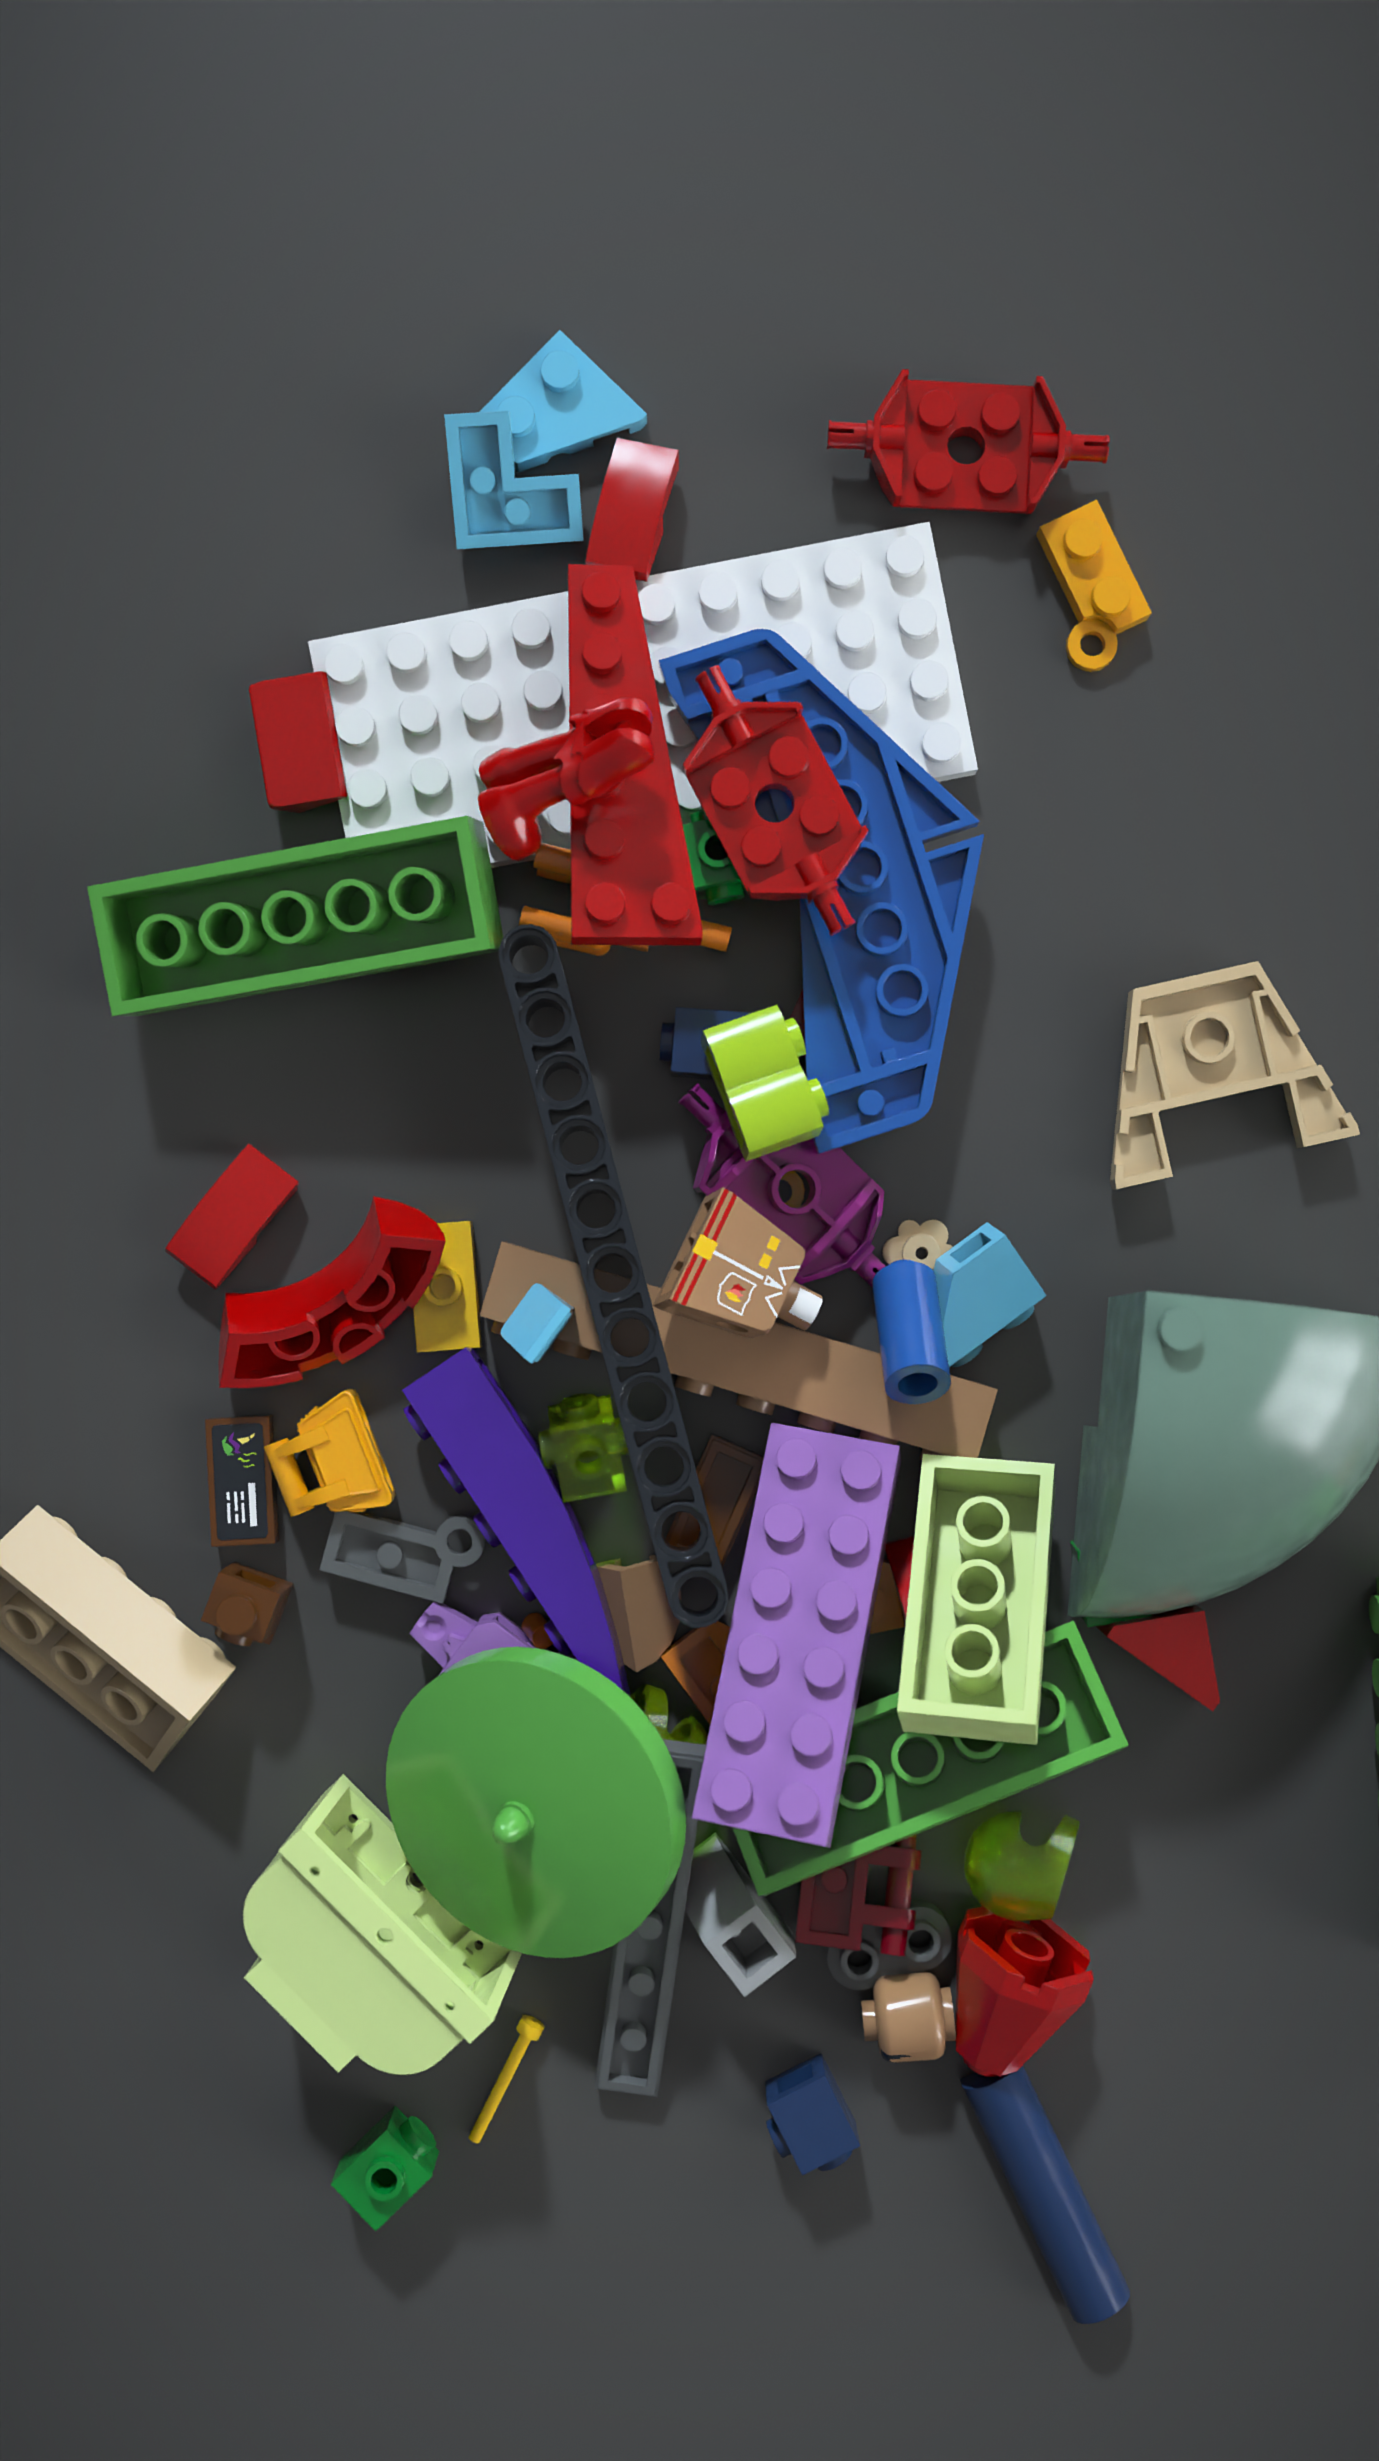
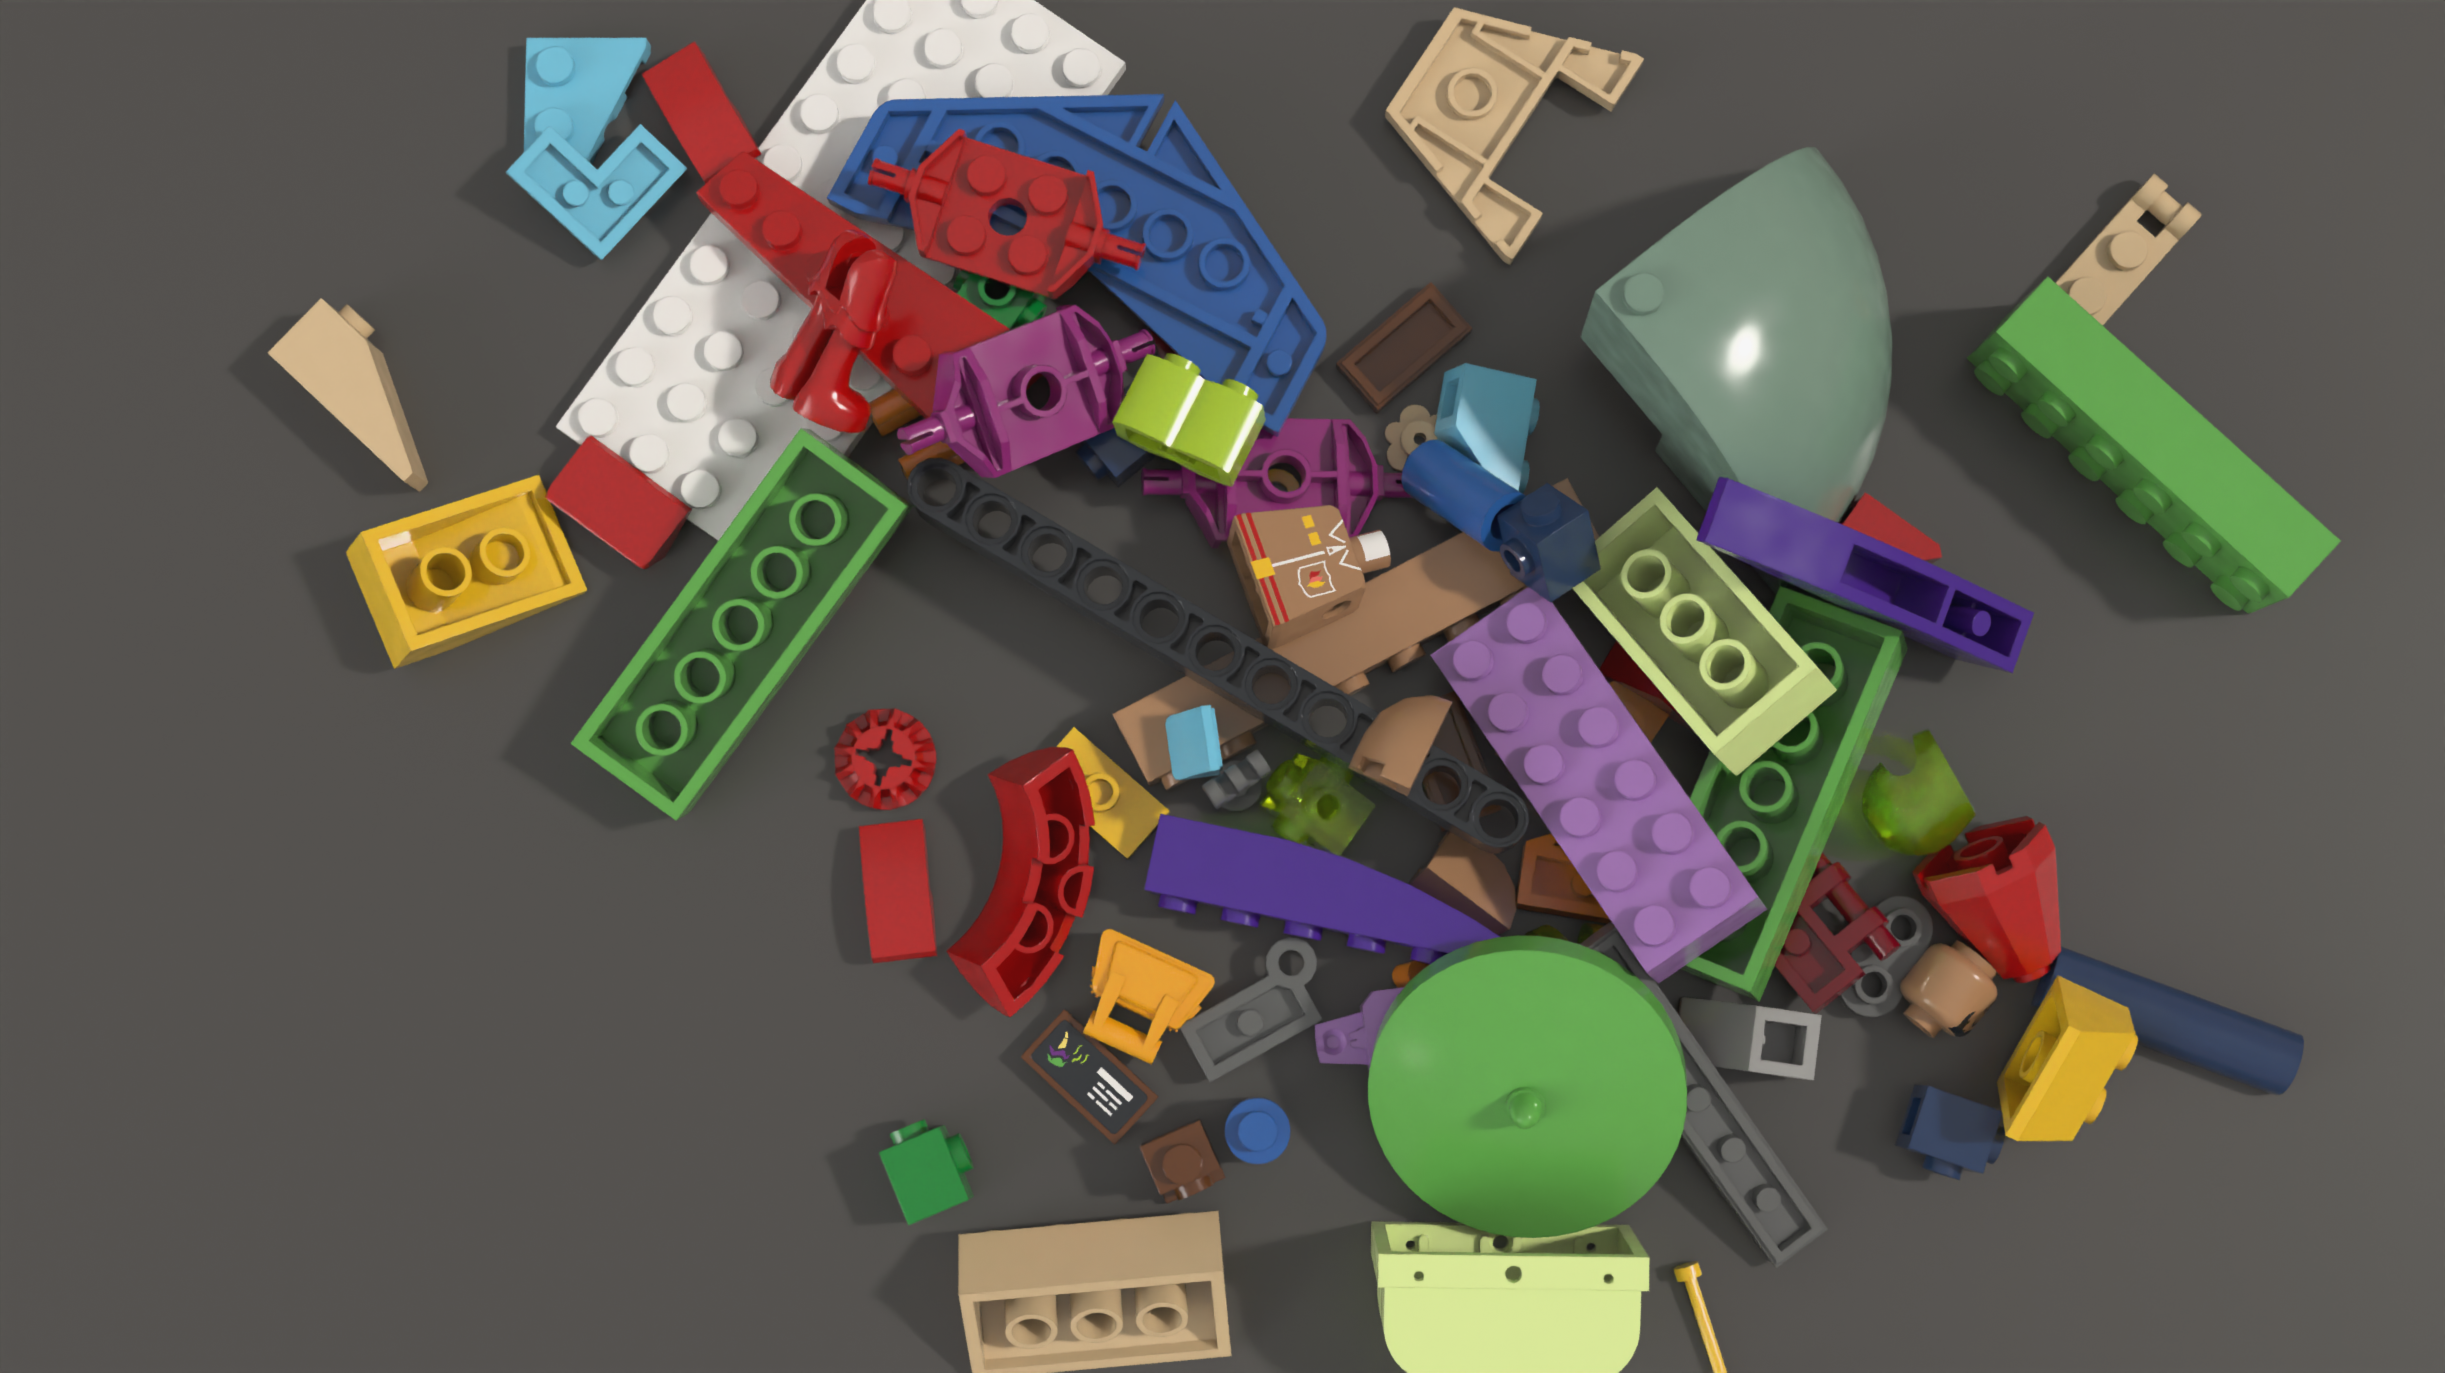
camera: 50 degrees left, 5 degrees down
(60, 1437) = (927, 1170): none -> green brick
(143, 684) = (464, 570): none -> yellow slope
(192, 467) = (351, 379): none -> tan slope
(318, 1638) = (1257, 1130): none -> blue brick
(344, 1117) = (902, 783): none -> red gear
(541, 1380) = (1238, 783): none -> dark grey hinge
(622, 921) = (984, 401): none -> magenta plate
(681, 1473) = (1400, 741): none -> medium nougat brick
(934, 1429) = (1548, 542): none -> dark blue brick
(936, 2154) = (2064, 1063): none -> yellow slope
(975, 1175) = (1403, 347): none -> reddish brown tile
(1139, 1679) = (1865, 576): none -> dark purple slope

